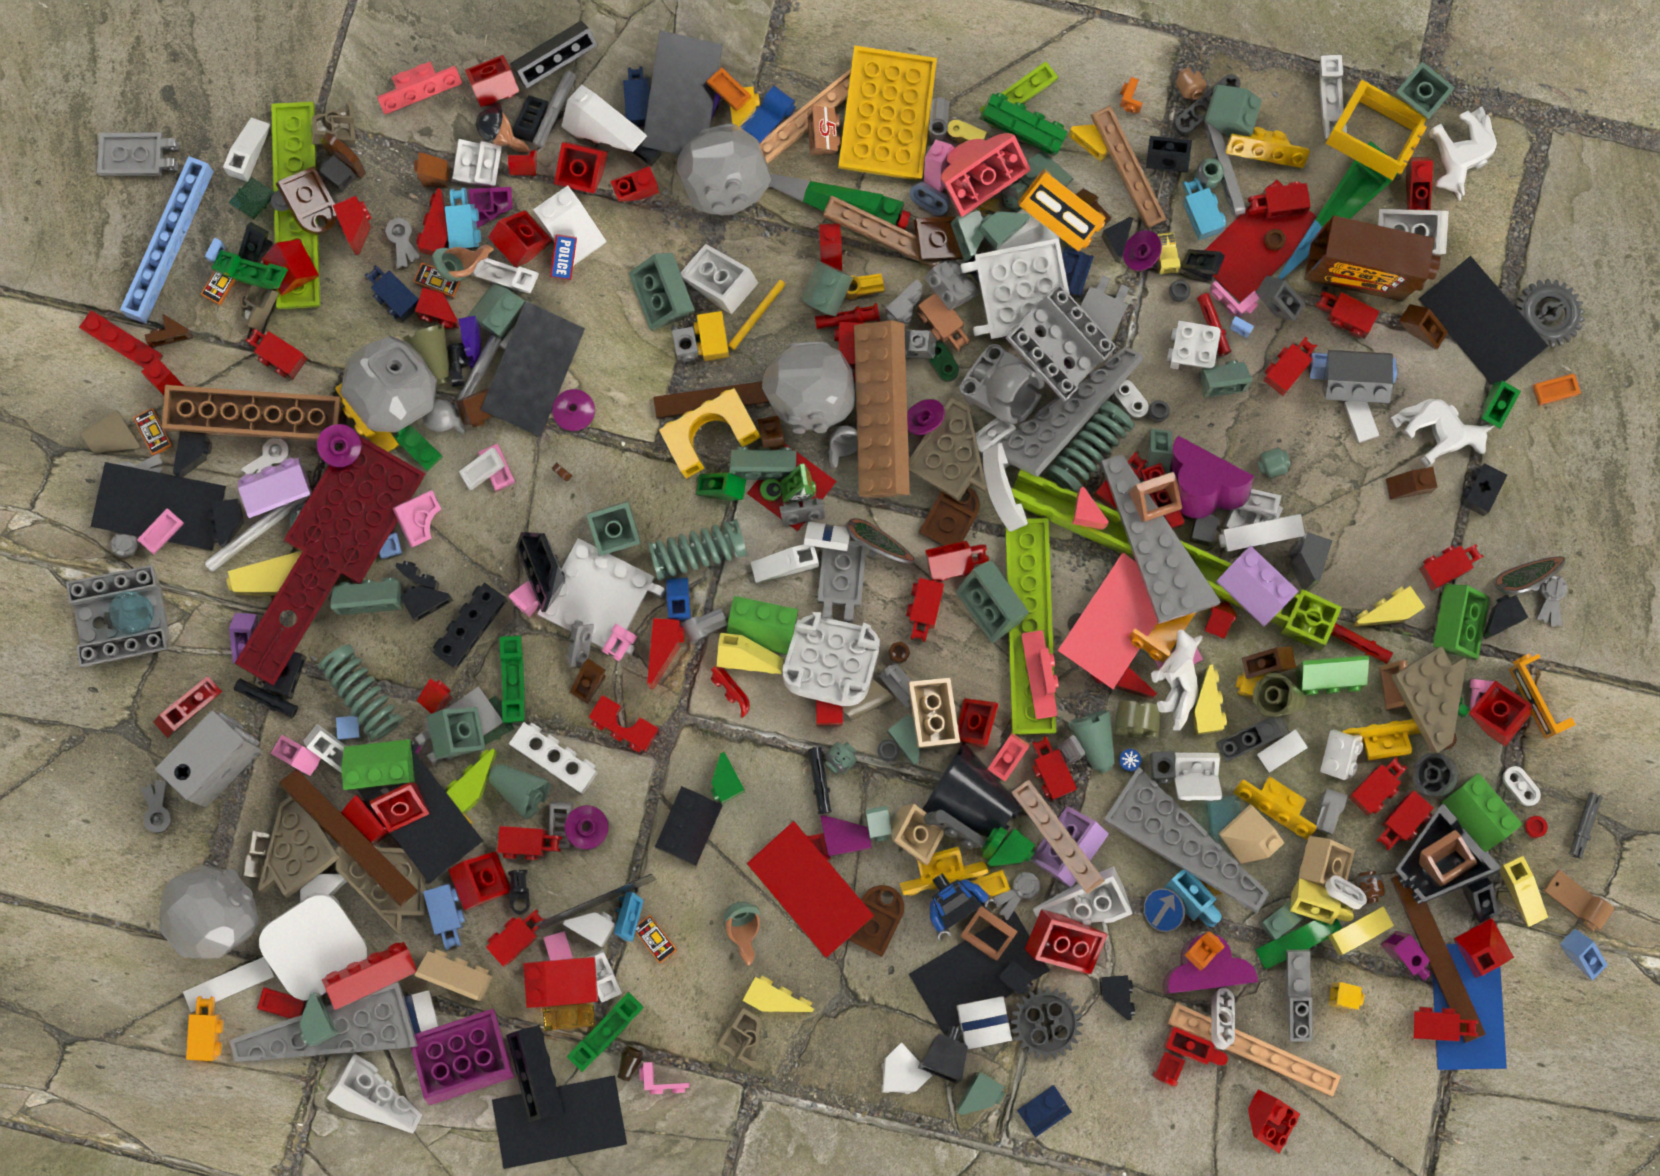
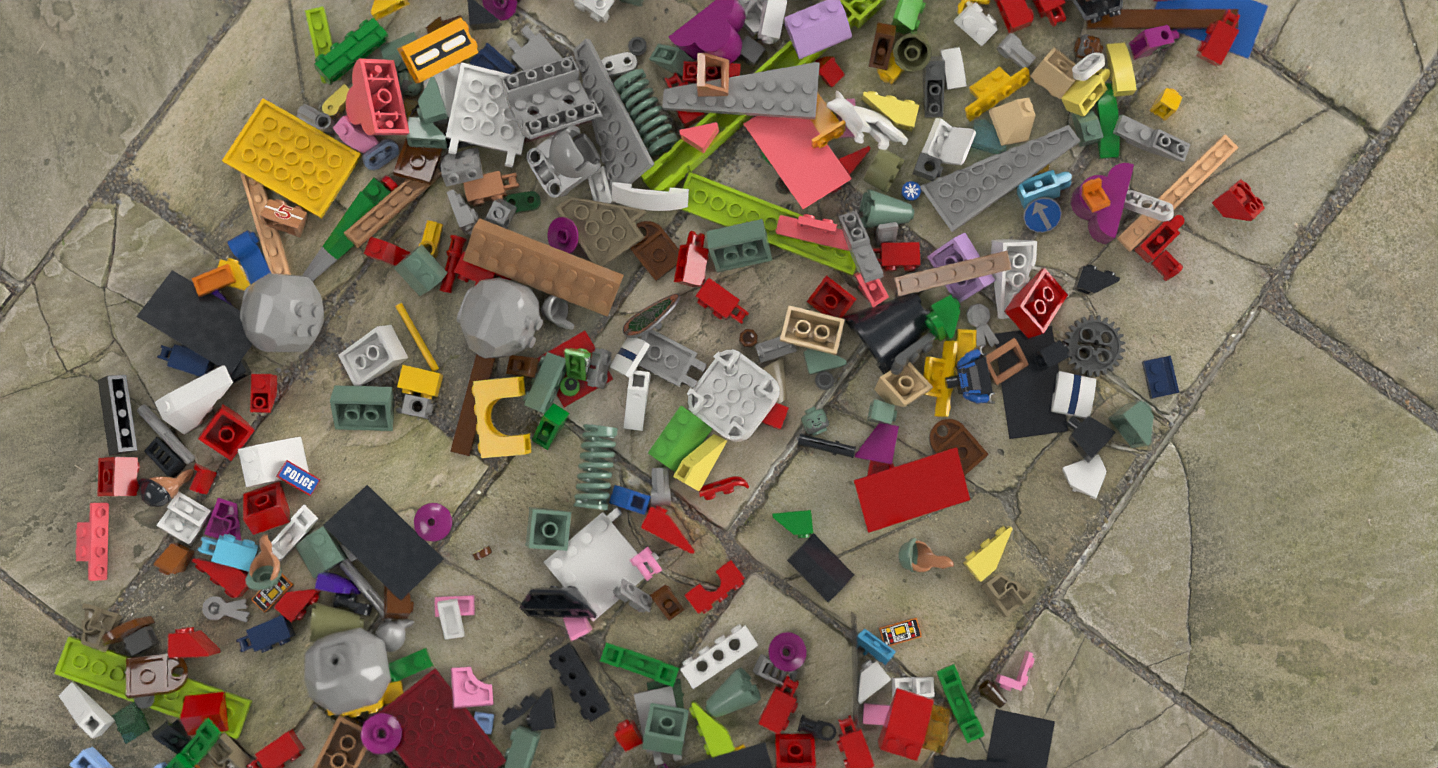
camera: 65 degrees left, 5 degrees up
(1043, 726) = (860, 247): none -> light grey slope

